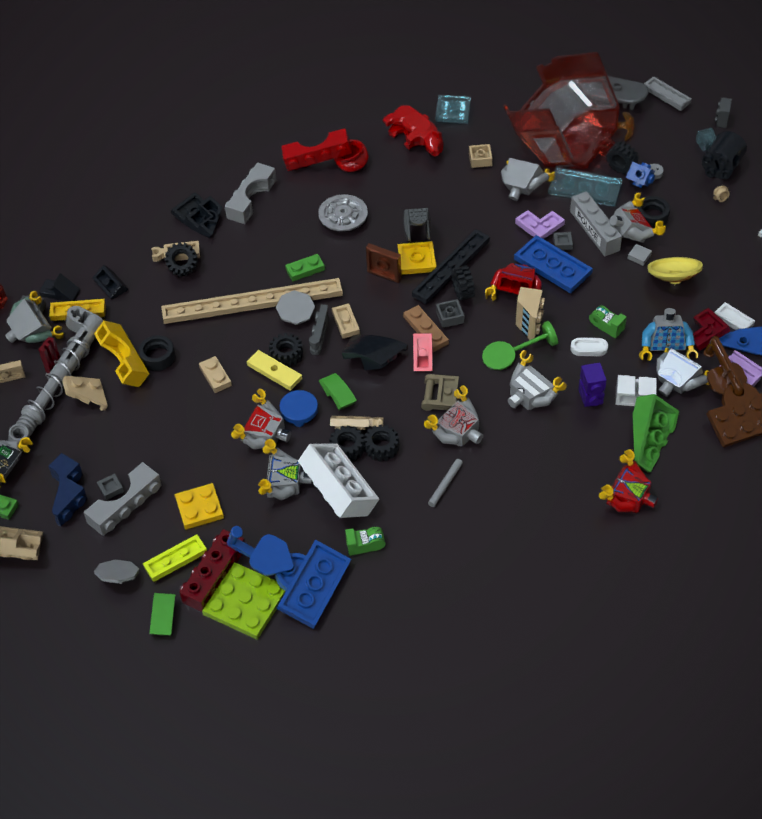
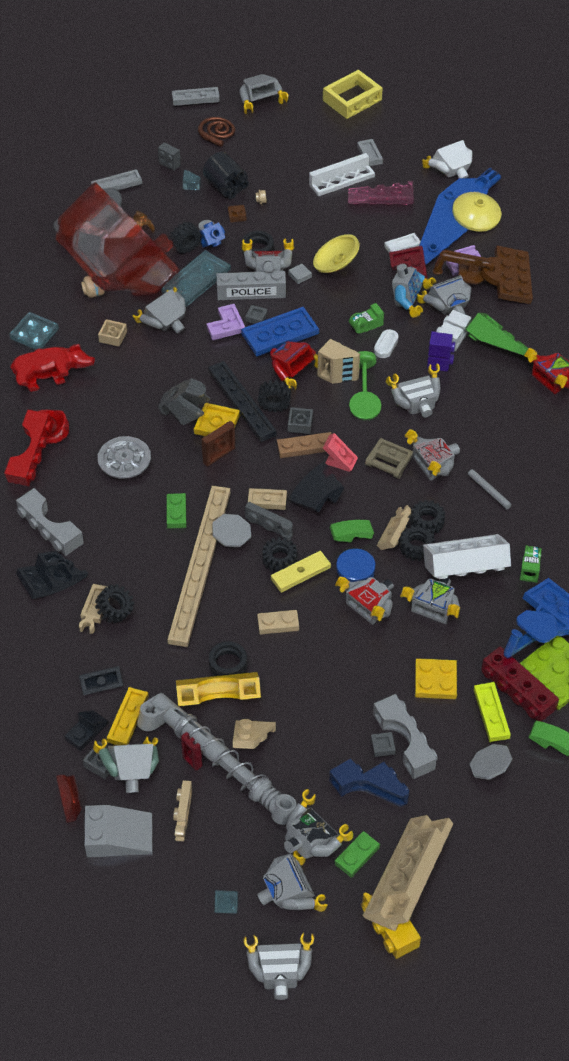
camera: 70 degrees left, 0 degrees up
(688, 185) = (237, 213): none -> reddish brown plate

